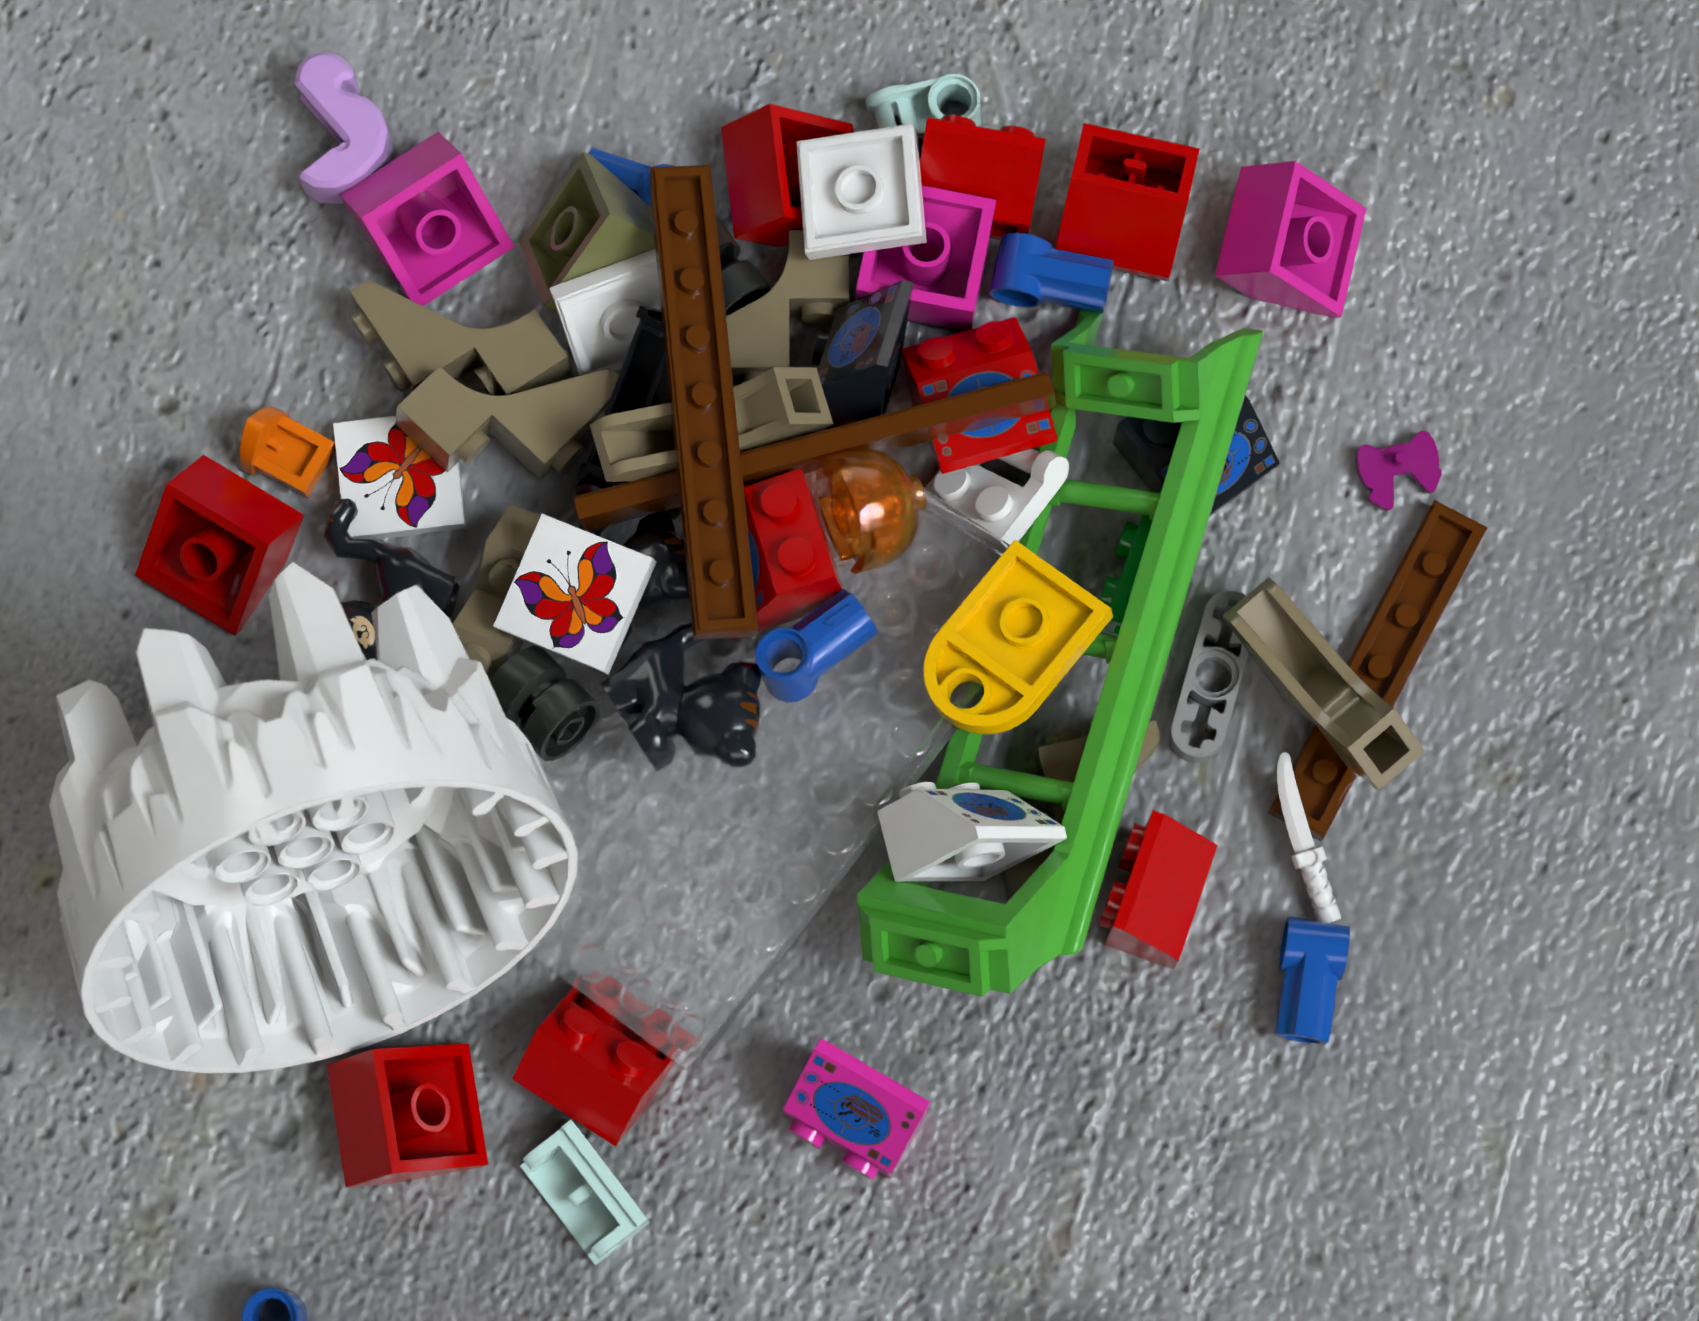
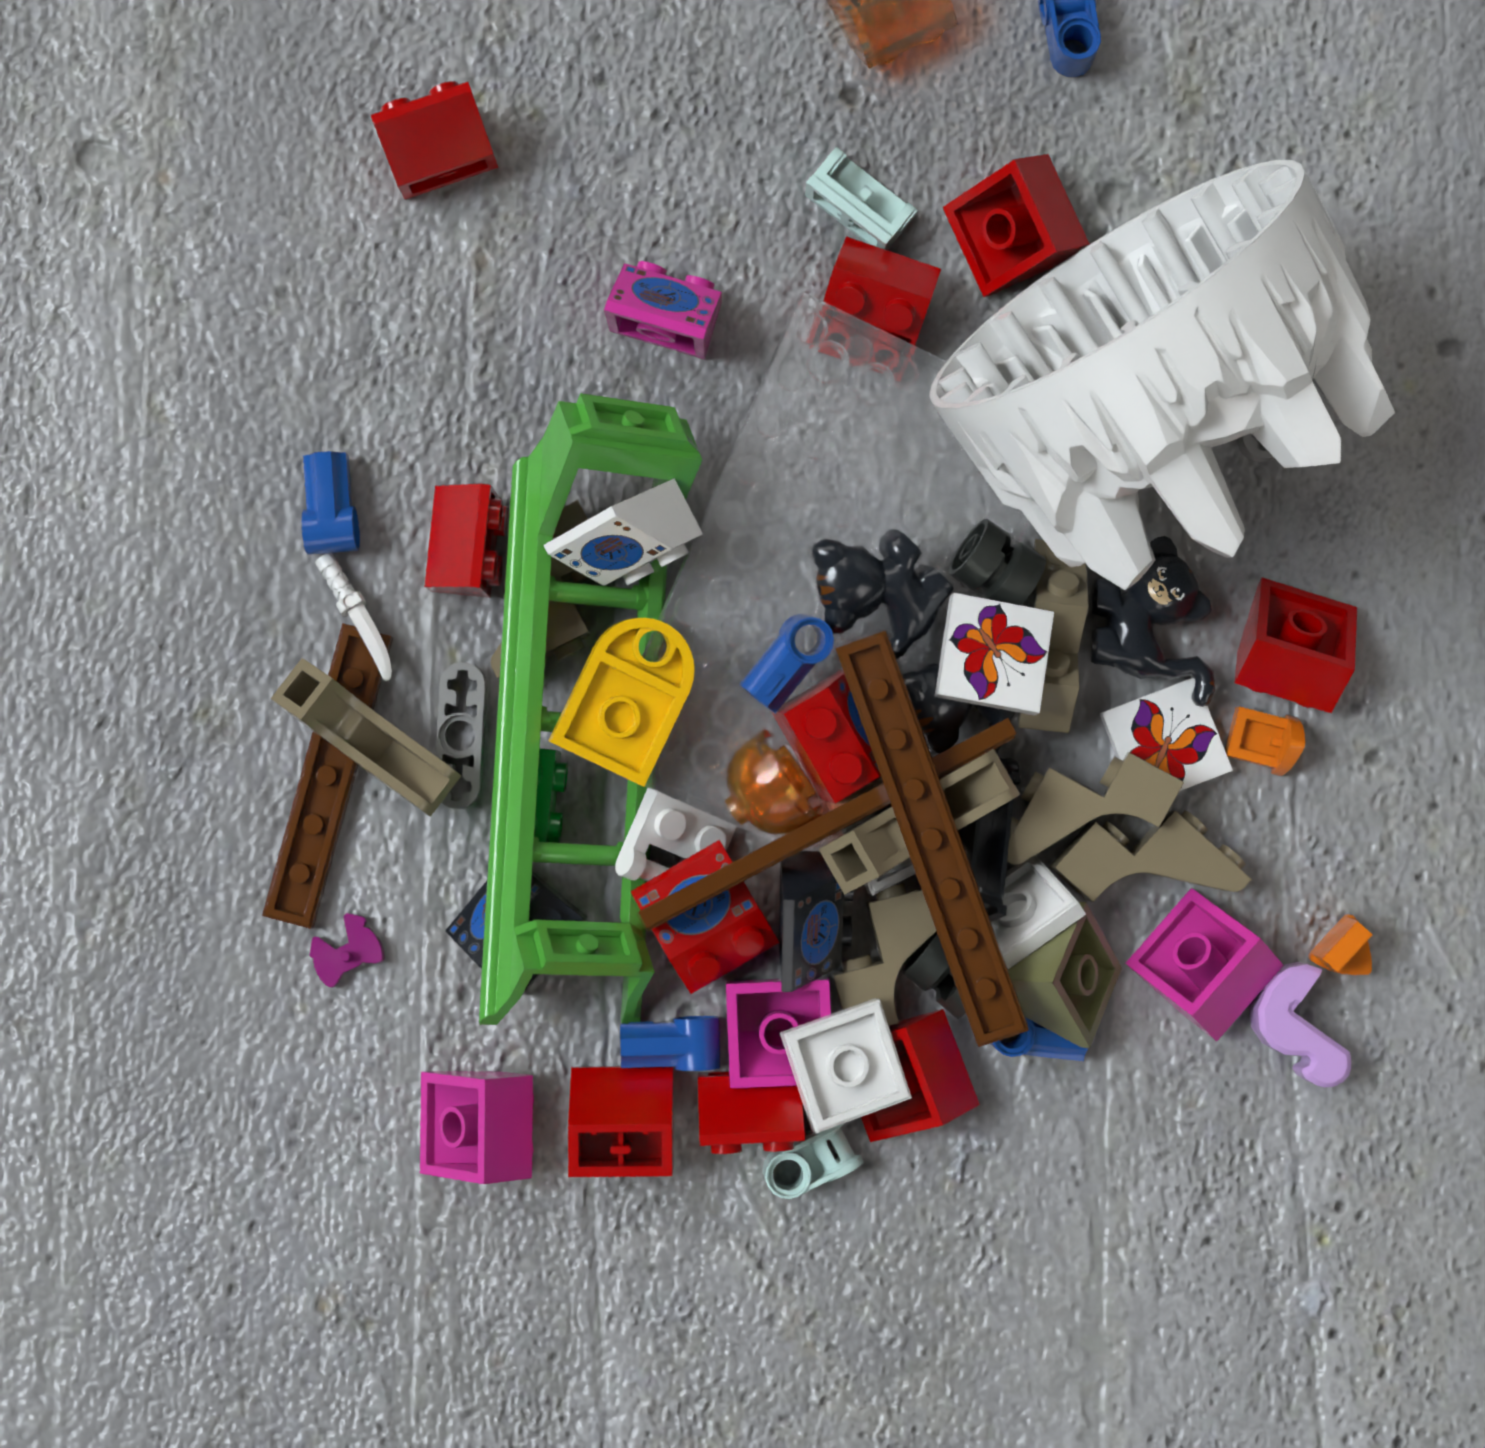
camera: 165 degrees right, 10 degrees up
(266, 201) = (1344, 948): none -> orange tile

